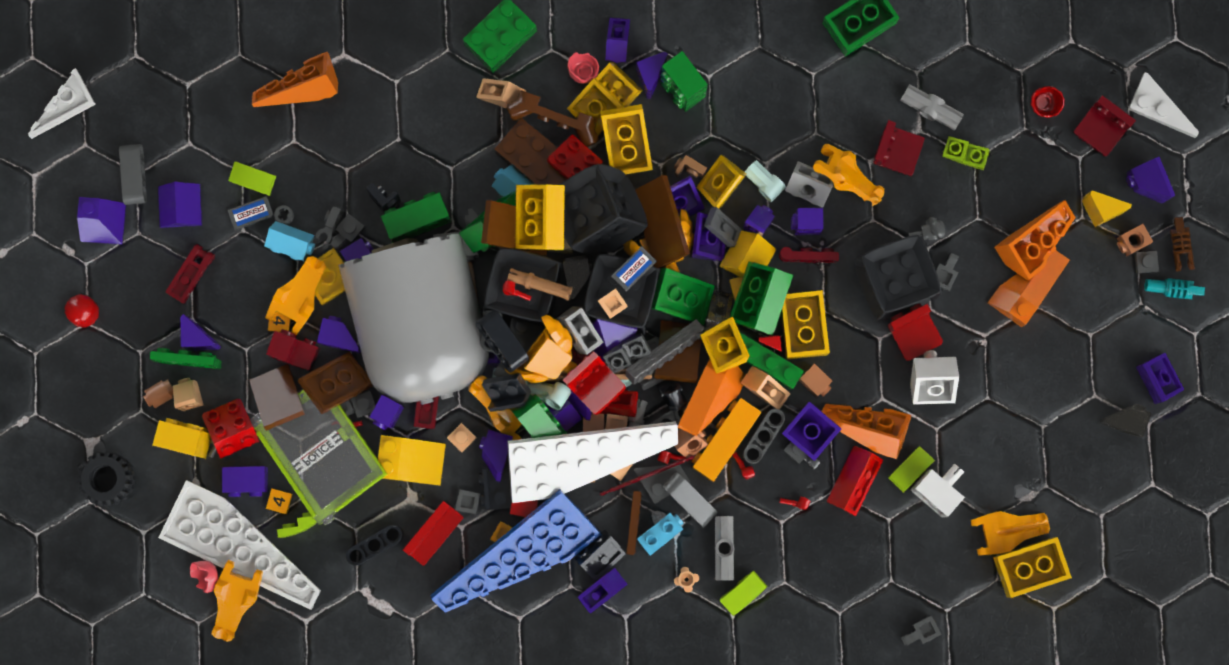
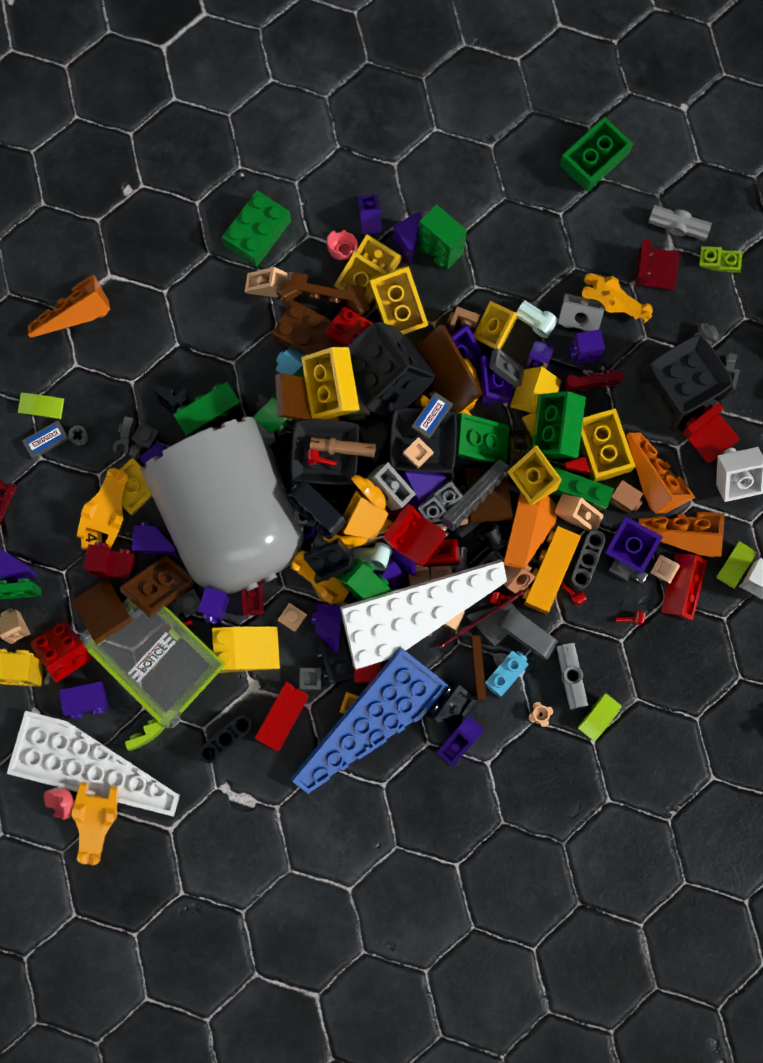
camera: 15 degrees left, 5 degrees down
(279, 501) = (122, 714): light orange tile -> none
(289, 241) = (88, 458): medium azure brick -> none
(839, 460) = (665, 569): none -> light nougat plate
(851, 371) = (658, 483): none -> orange wedge

